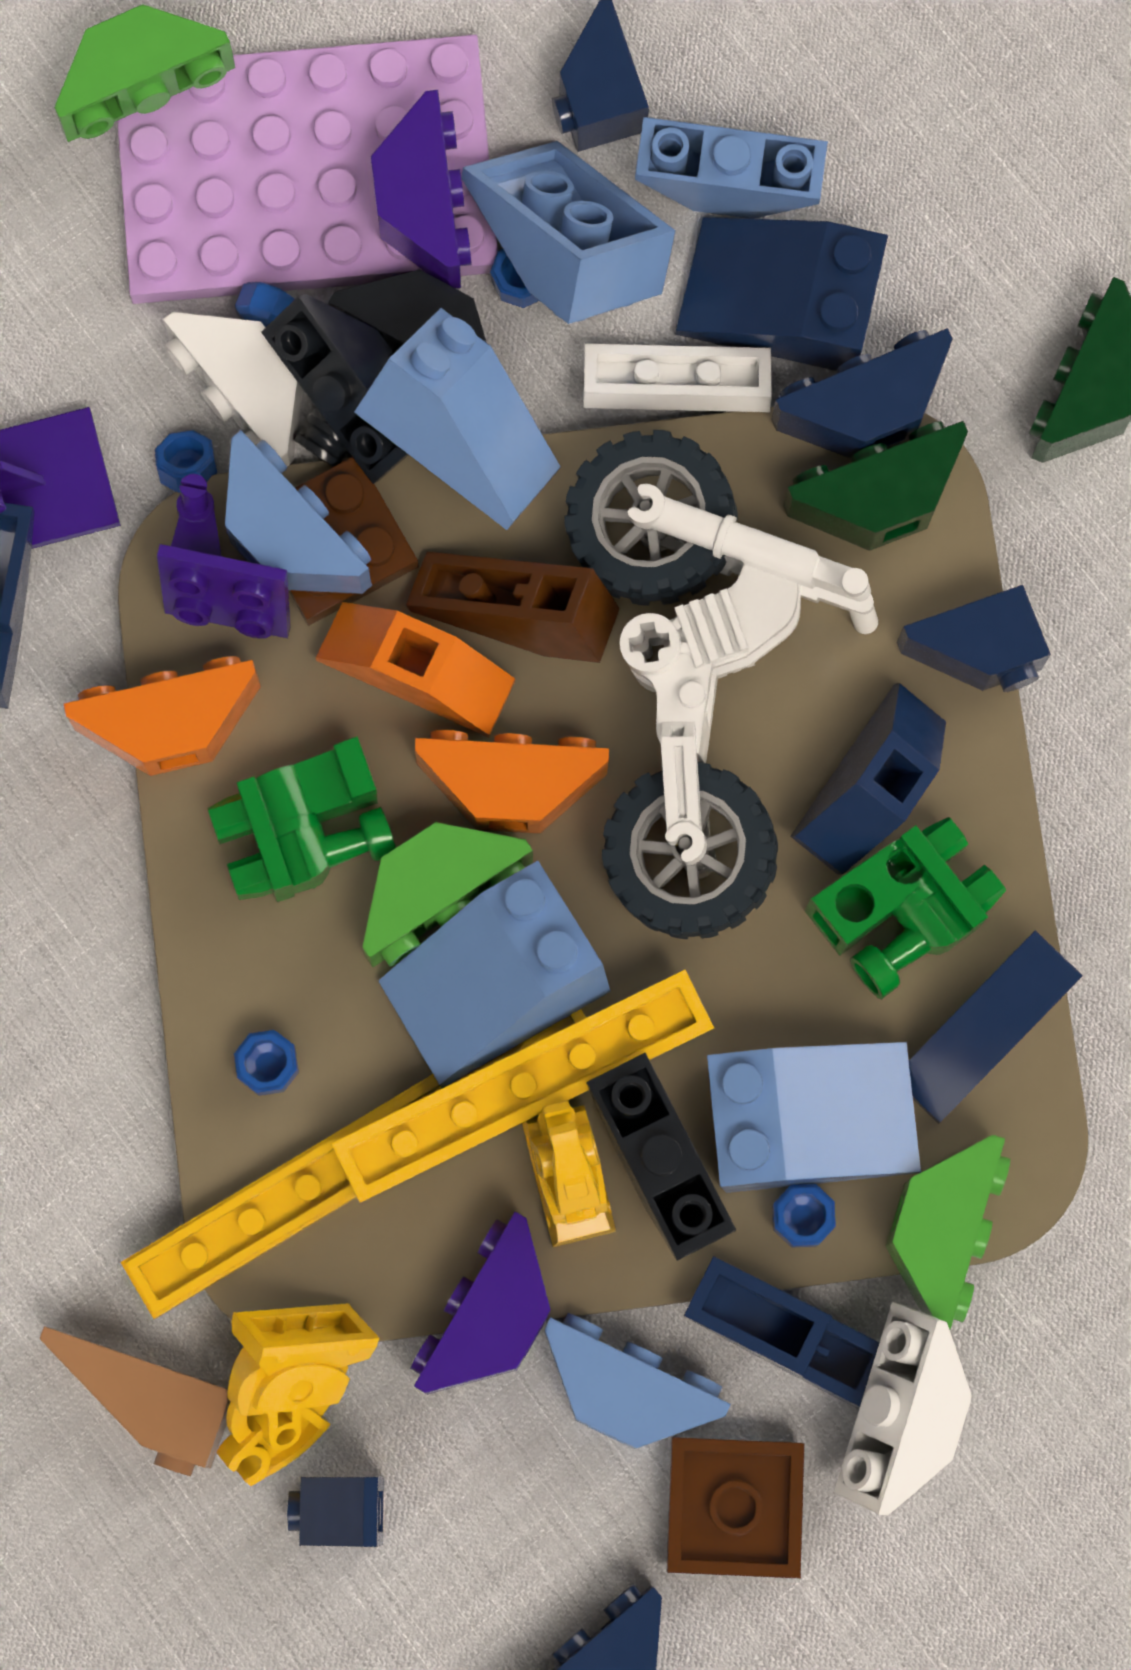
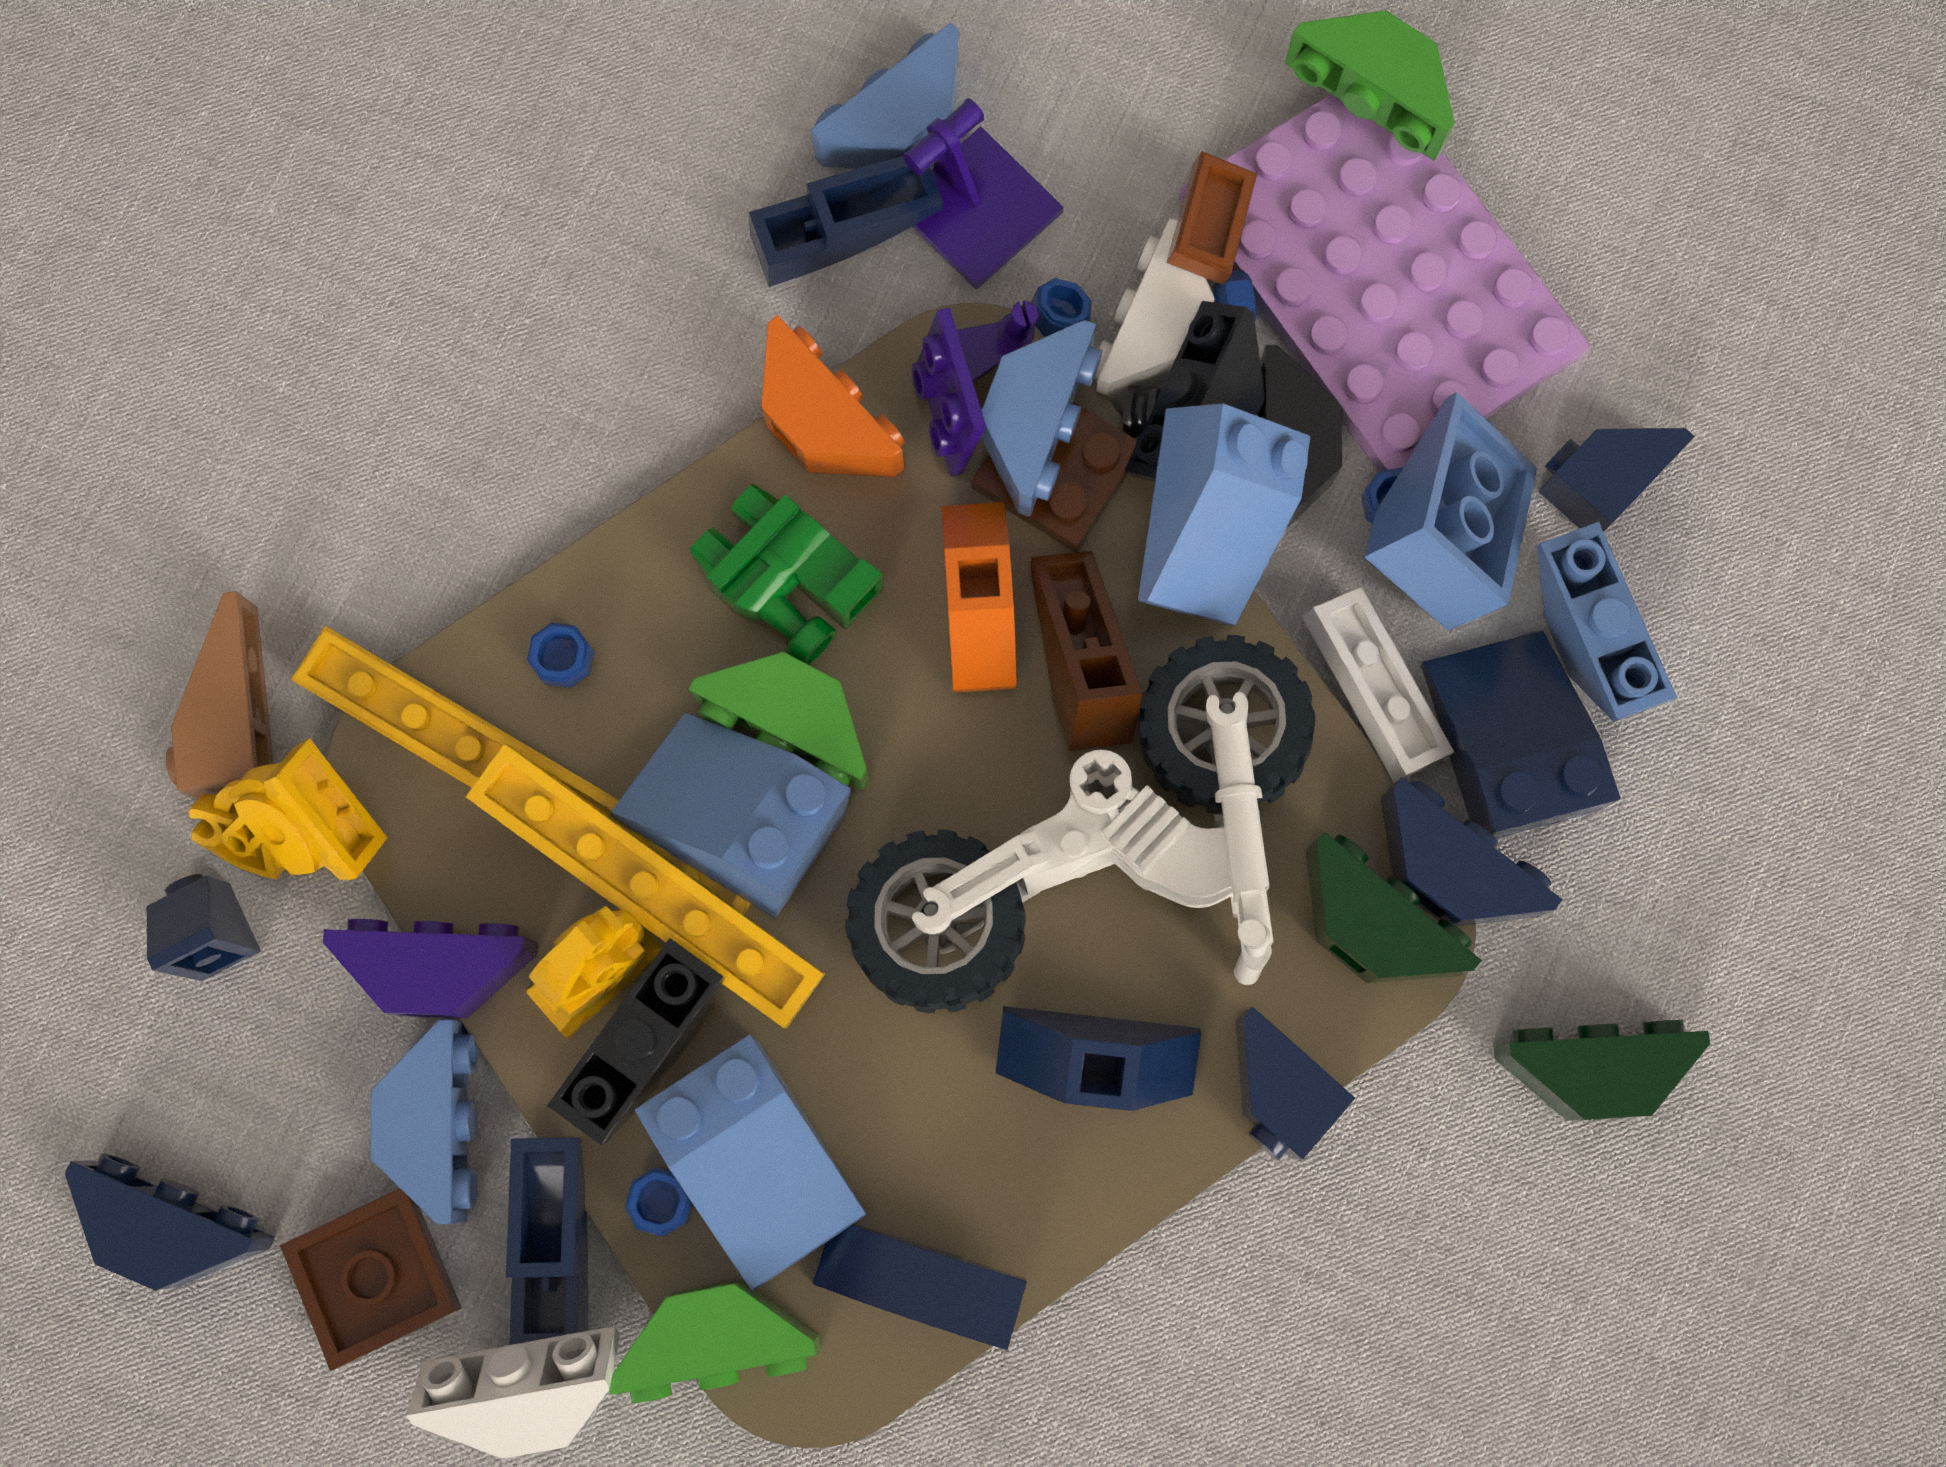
camera: 65 degrees right, 0 degrees up
(185, 282) = (1212, 218): none -> dark orange tile
(419, 192) = (1412, 365): dark purple slope -> none
(510, 780) = (921, 730): orange slope -> none
(919, 890) = (1013, 1152): green hips -> none

